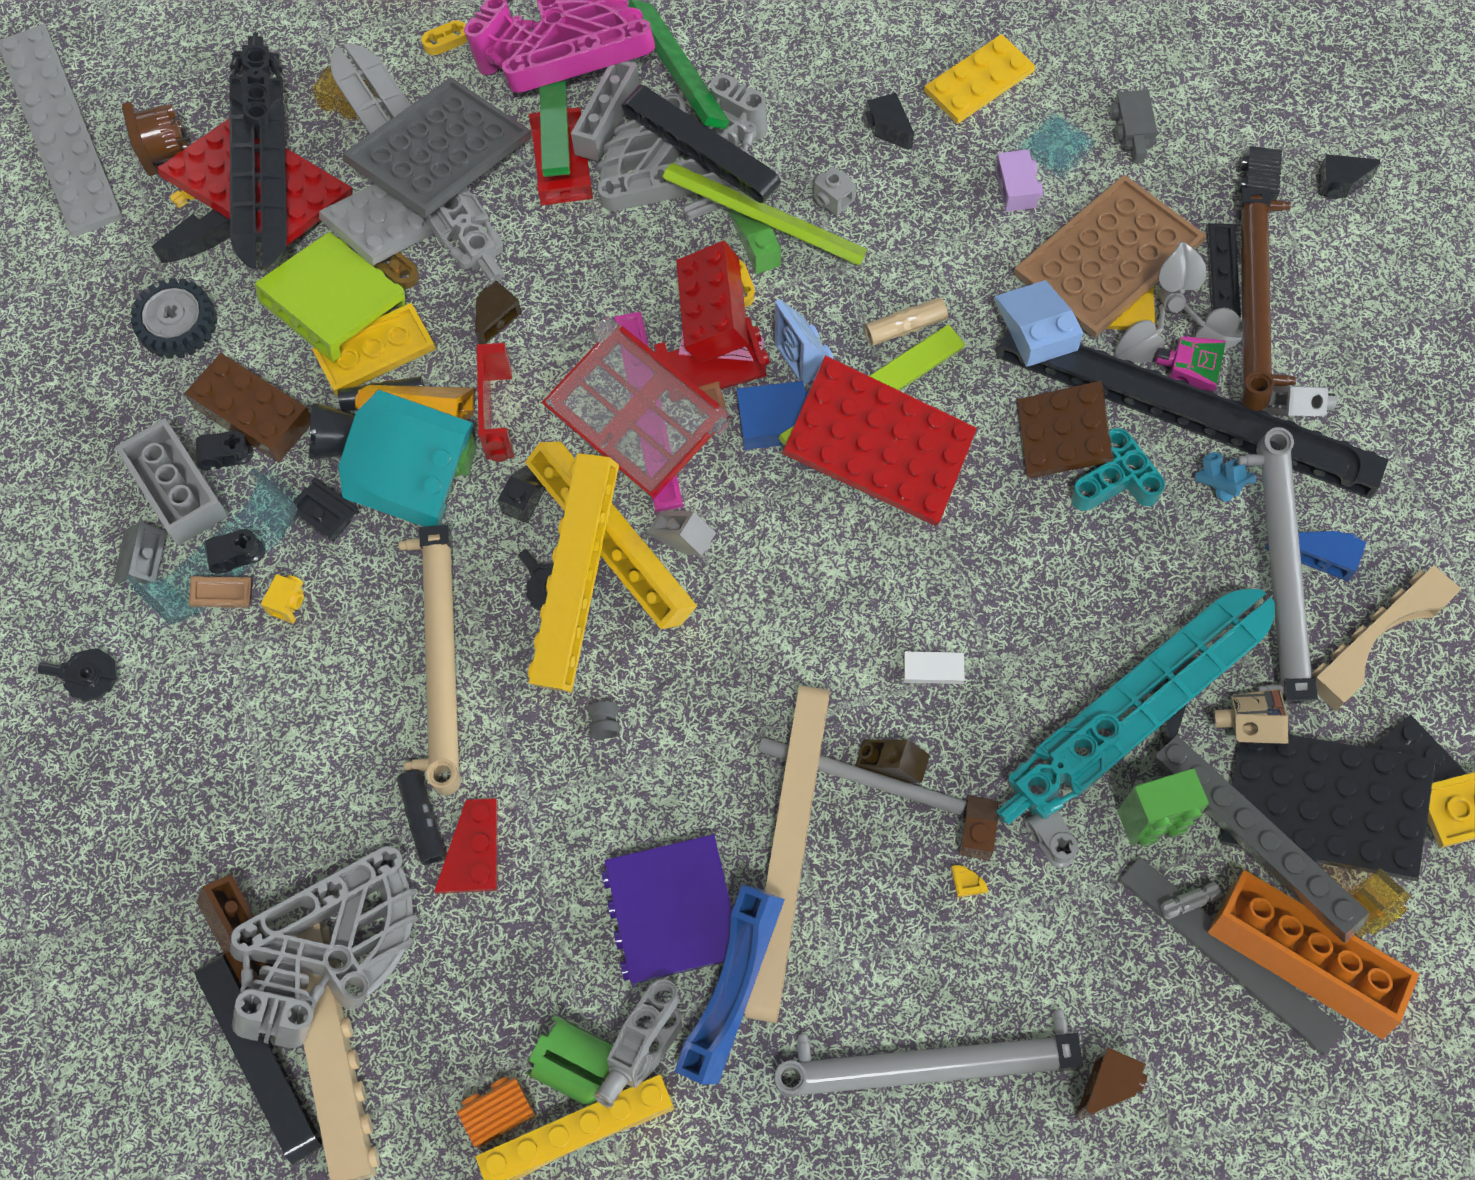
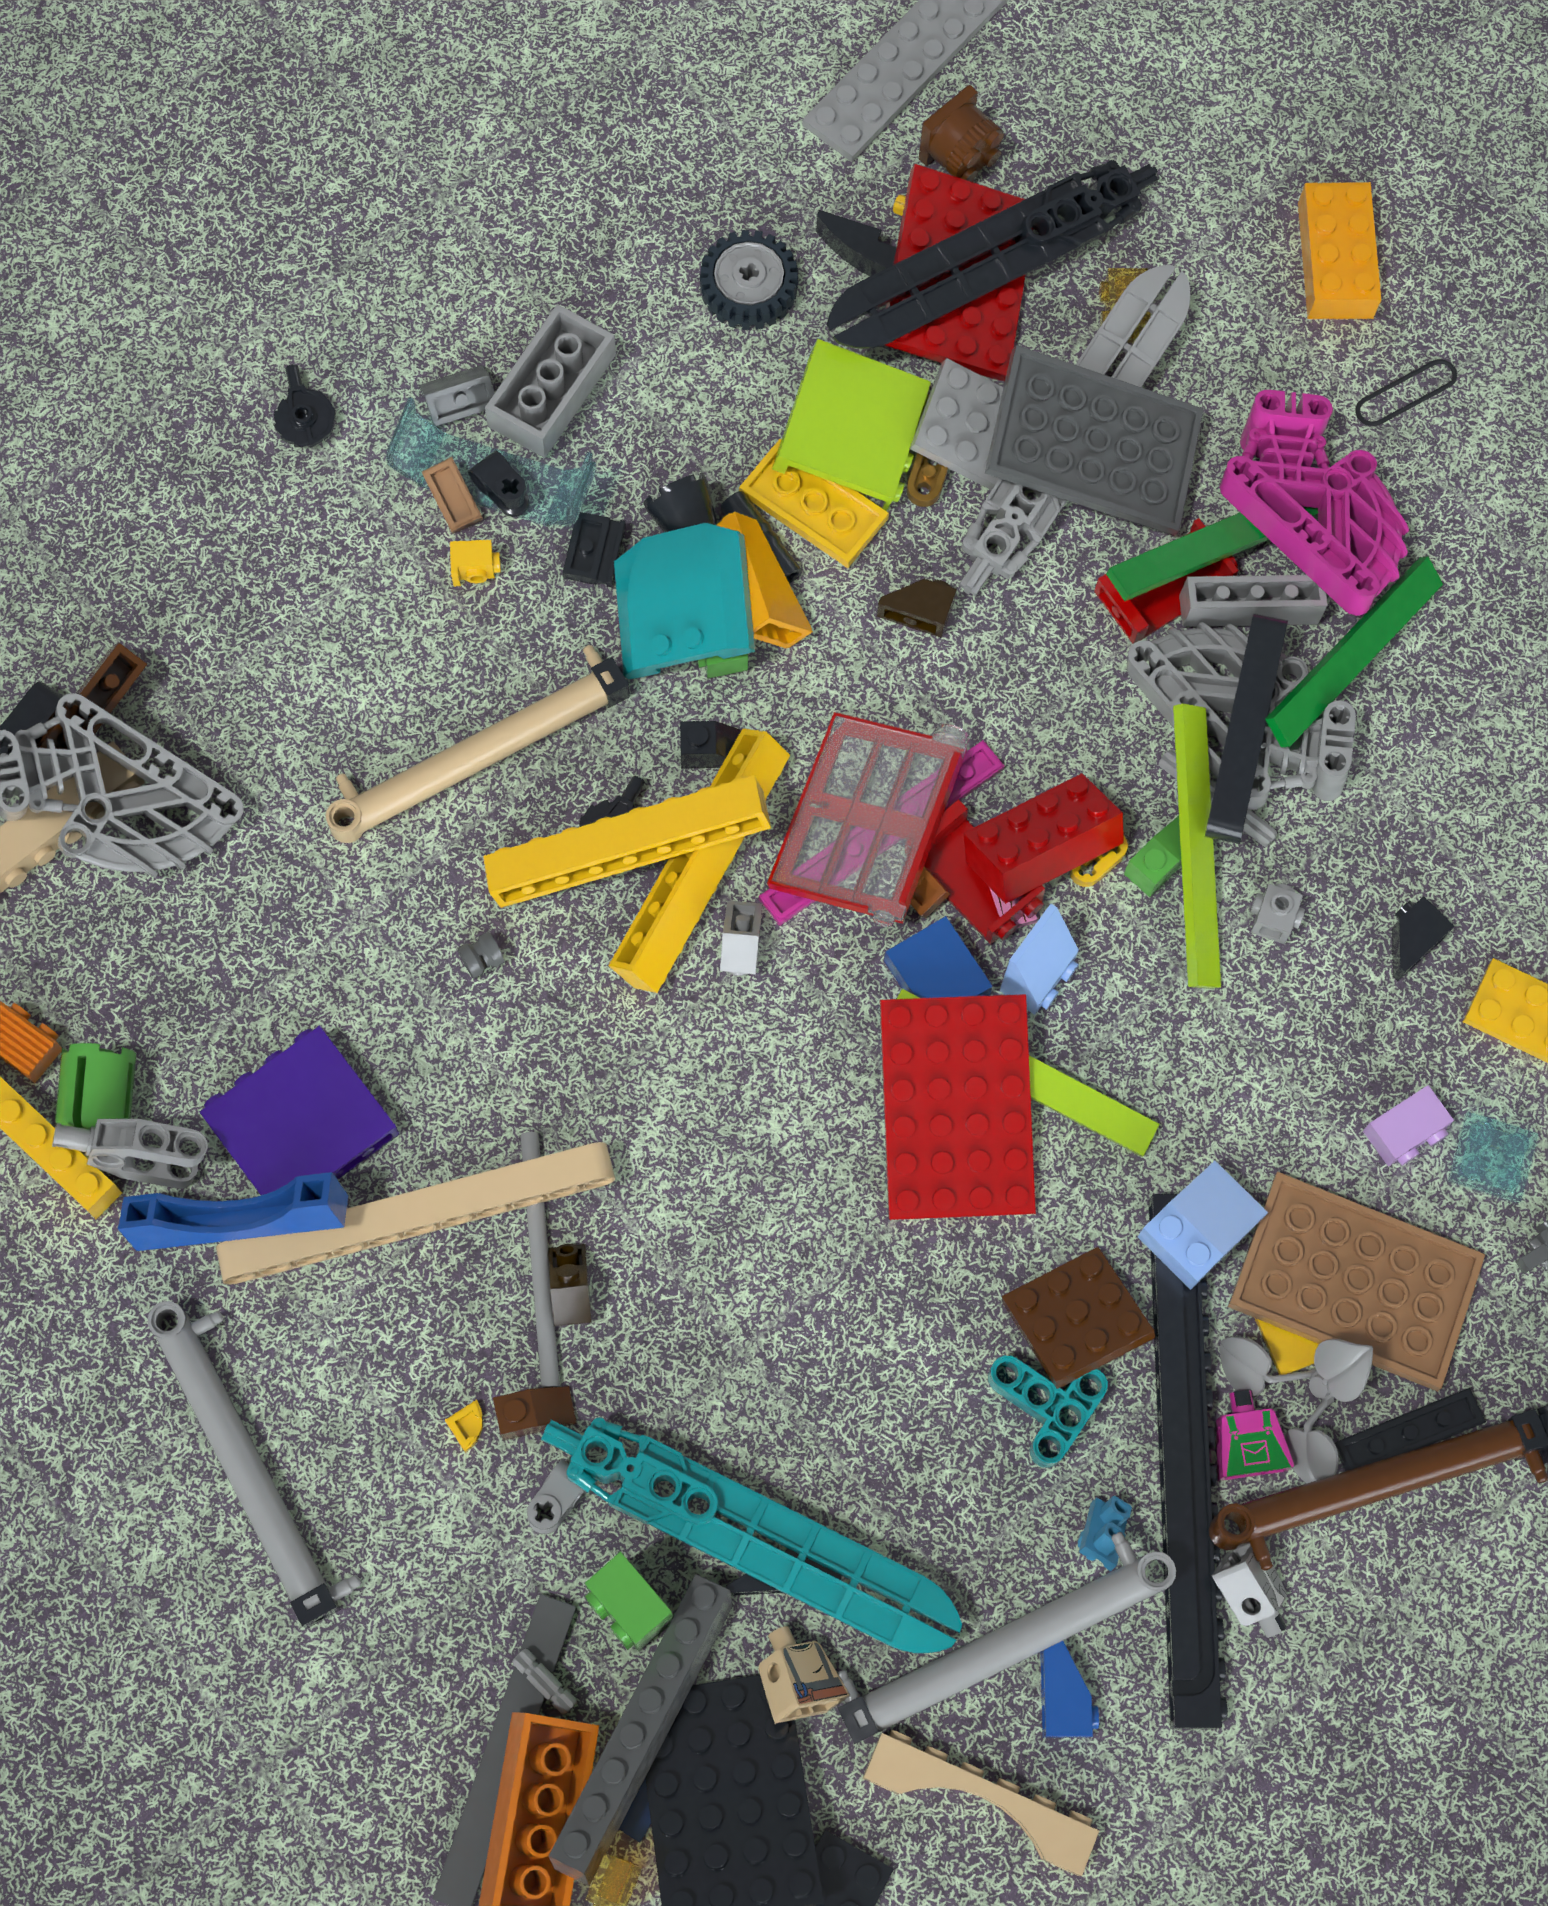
camera: 60 degrees right, 5 degrees up
(221, 449) = (615, 412): black piece -> none
(249, 405) = (676, 411): reddish brown brick -> none
(420, 817) = (292, 819): black axle -> none
(444, 37) = (1268, 374): yellow beam -> none
(473, 850) = (282, 889): red wing -> none
(492, 365) = (837, 630): red panel -> none
(906, 321) = (1139, 1073): tan axle -> none
(934, 667) = (705, 1287): white tile -> none
(1111, 1082) = (293, 1664): reddish brown slope -> none

